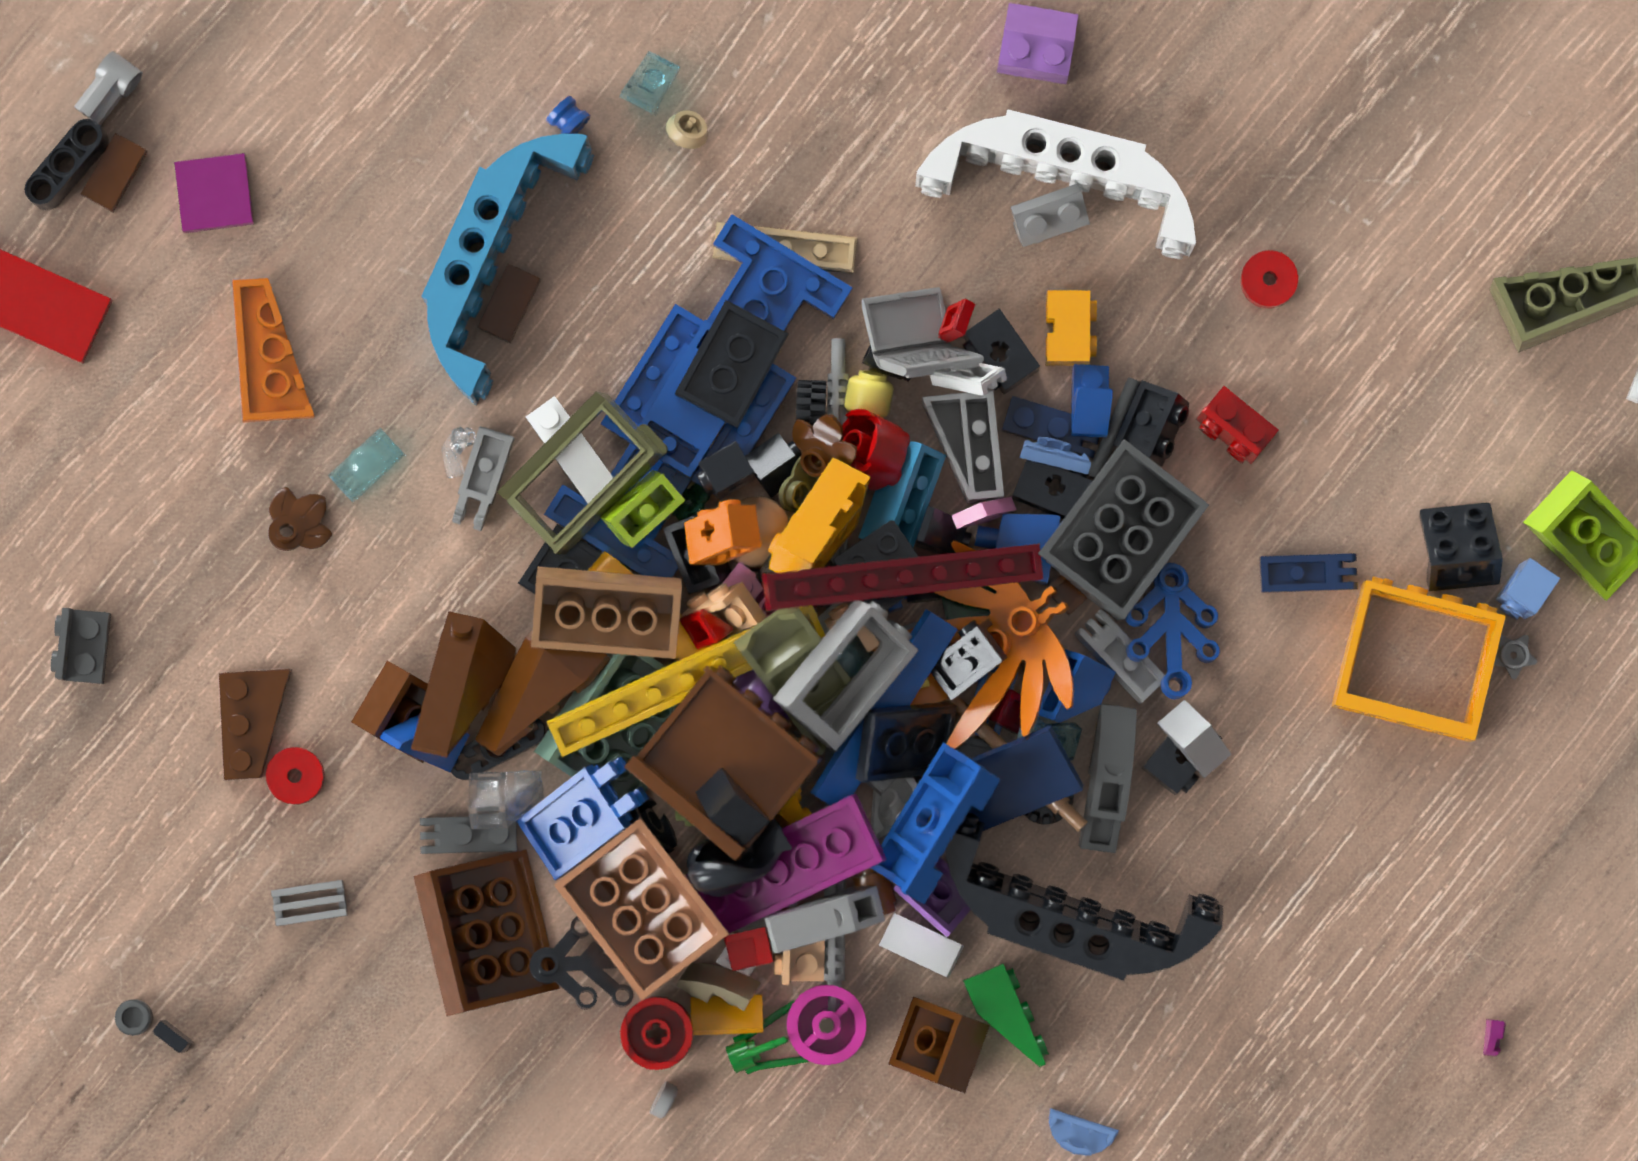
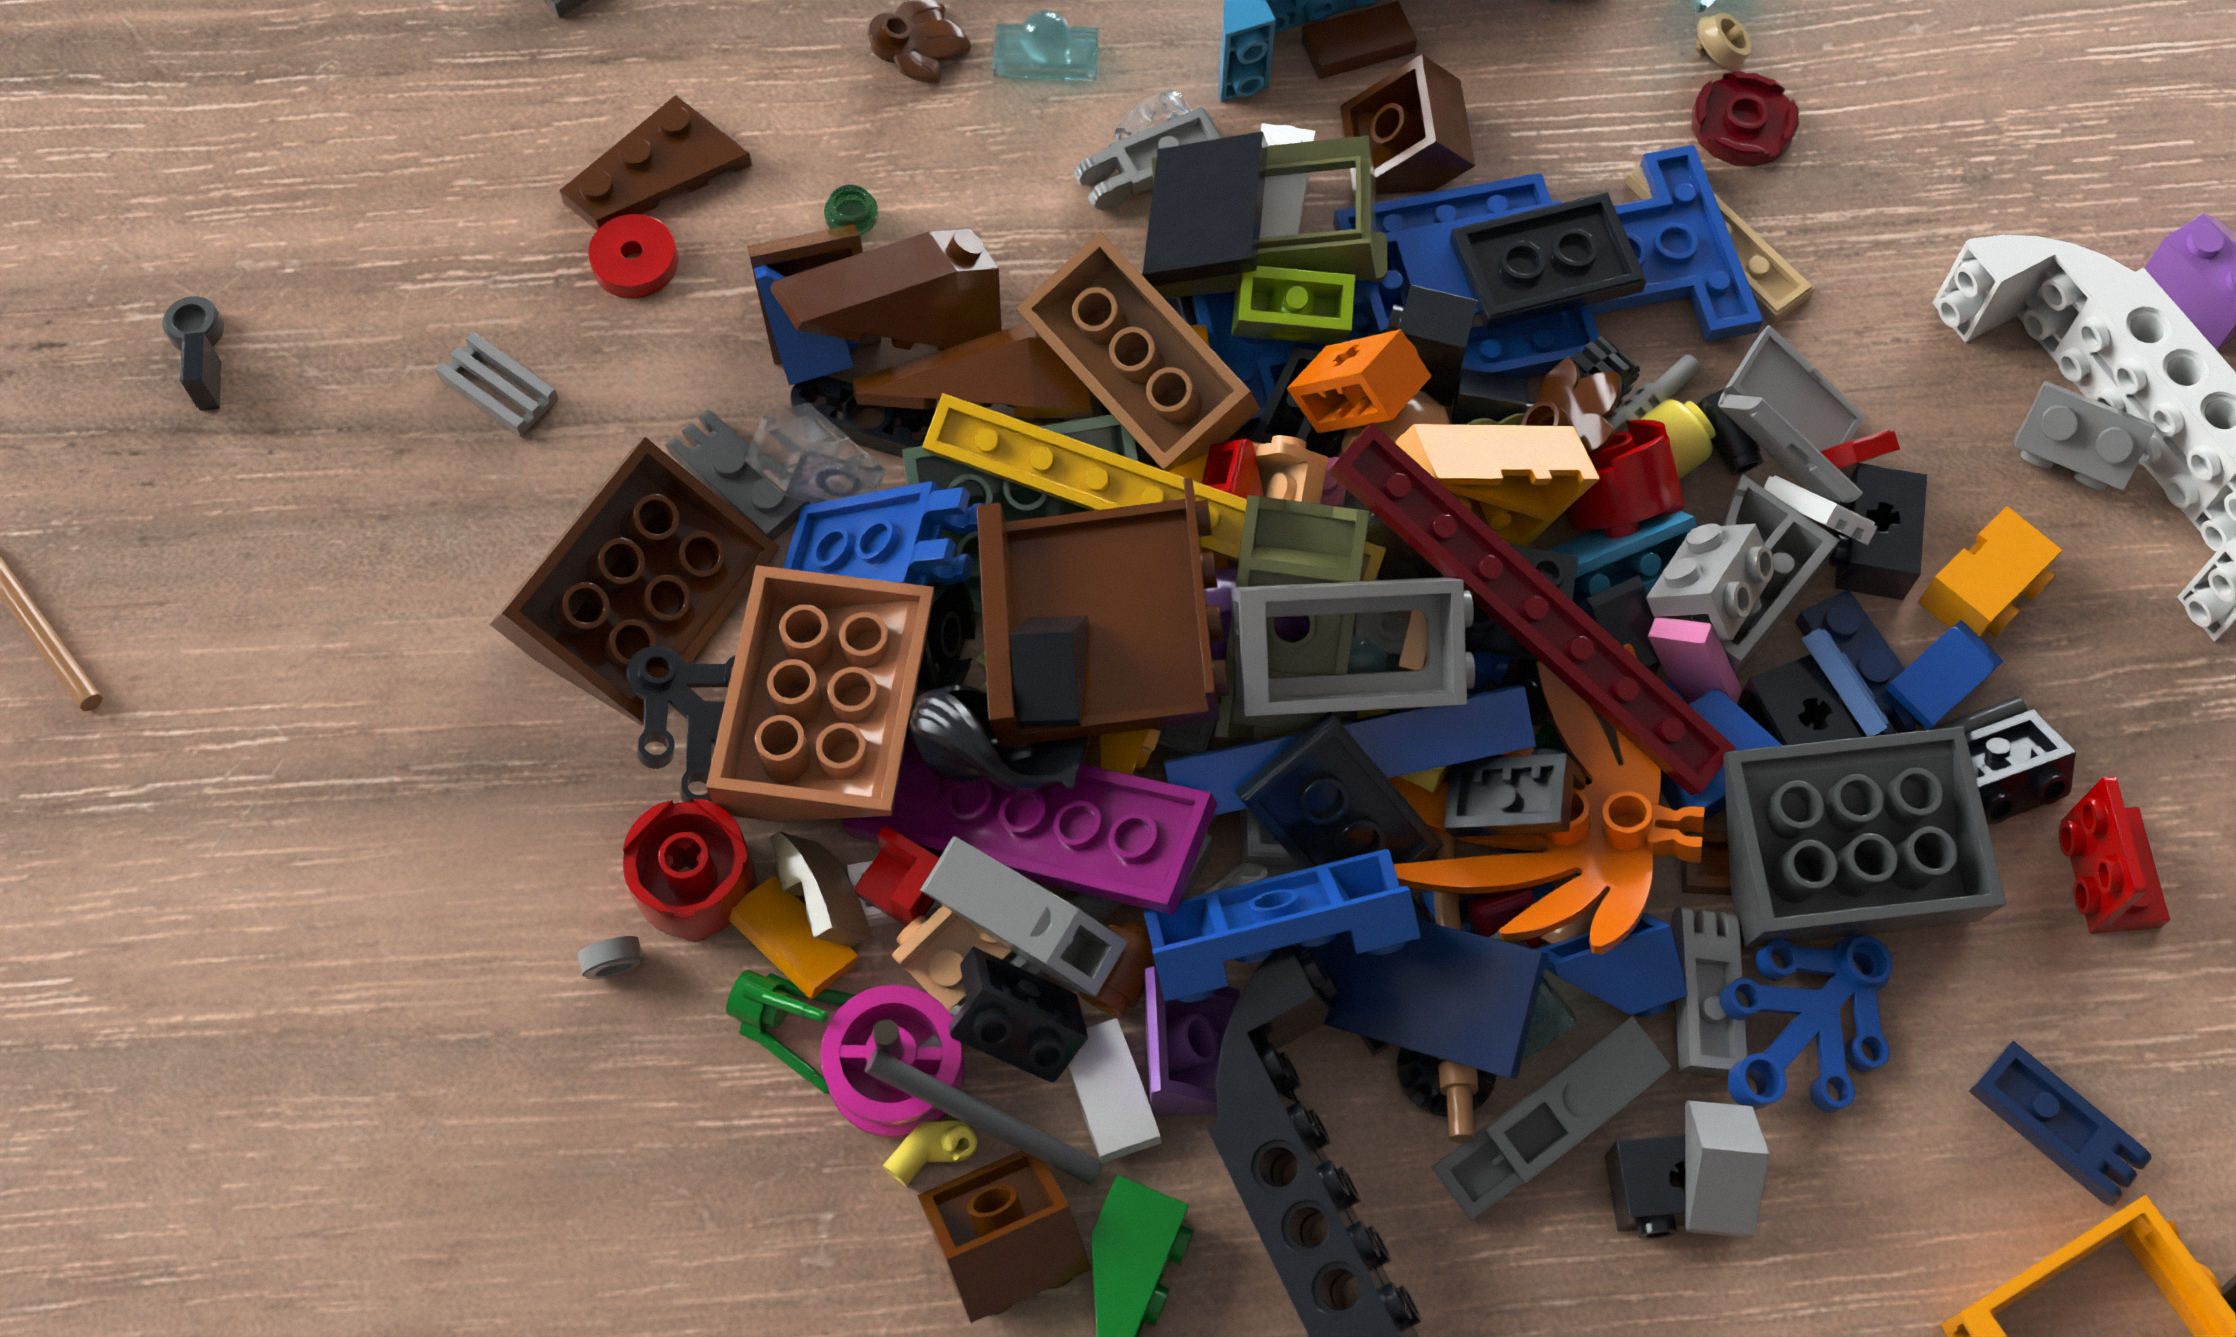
camera: 40 degrees right, 20 degrees down
(371, 650) = (851, 206): none -> clear green plate
(560, 505) = (1206, 209): none -> black tile
(589, 341) = (1413, 128): none -> reddish brown slope
(736, 164) = (1744, 119): none -> dark red tile
(858, 957) = (1018, 1016): none -> black bracket
(875, 1036) = (931, 1144): none -> light yellow arm
(889, 1012) = (982, 1116): none -> dark grey bar
(960, 473) = (1715, 574): none -> light grey bracket

